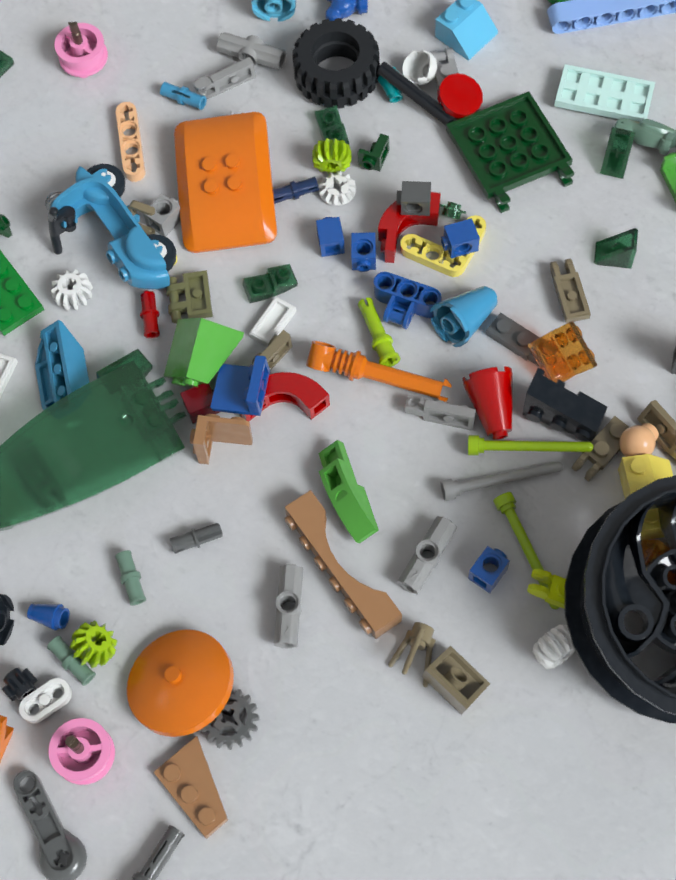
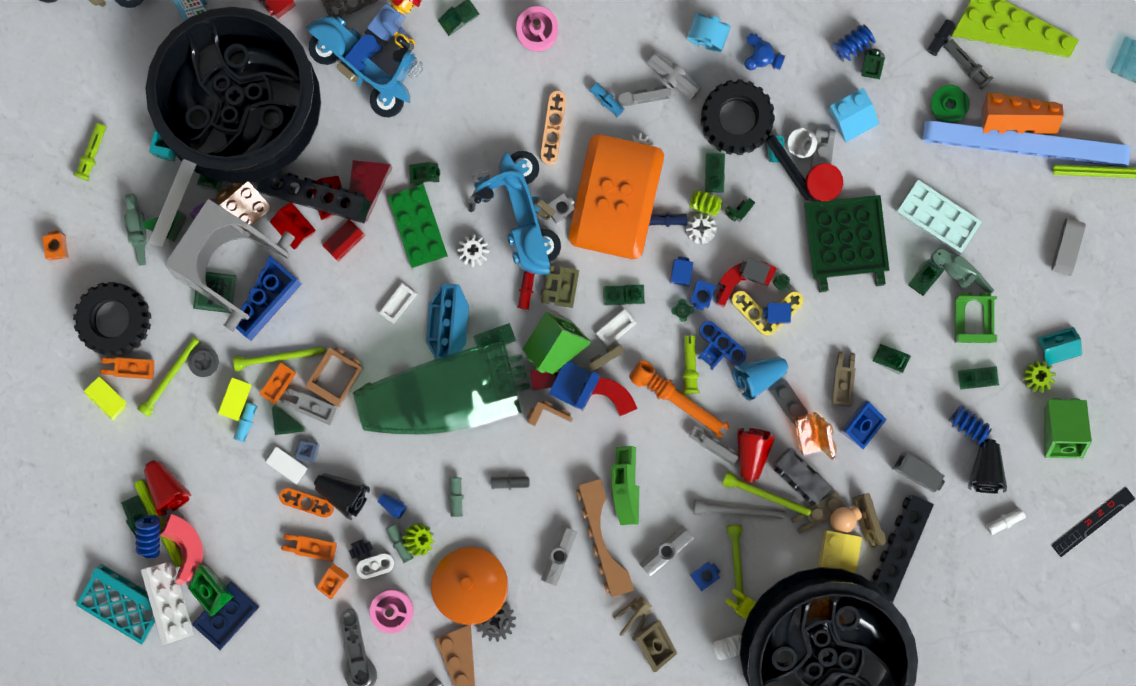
camera: 10 degrees right, 20 degrees up
(346, 283) = (682, 315): none -> clear green plate
(614, 330) = (863, 424): none -> blue slope

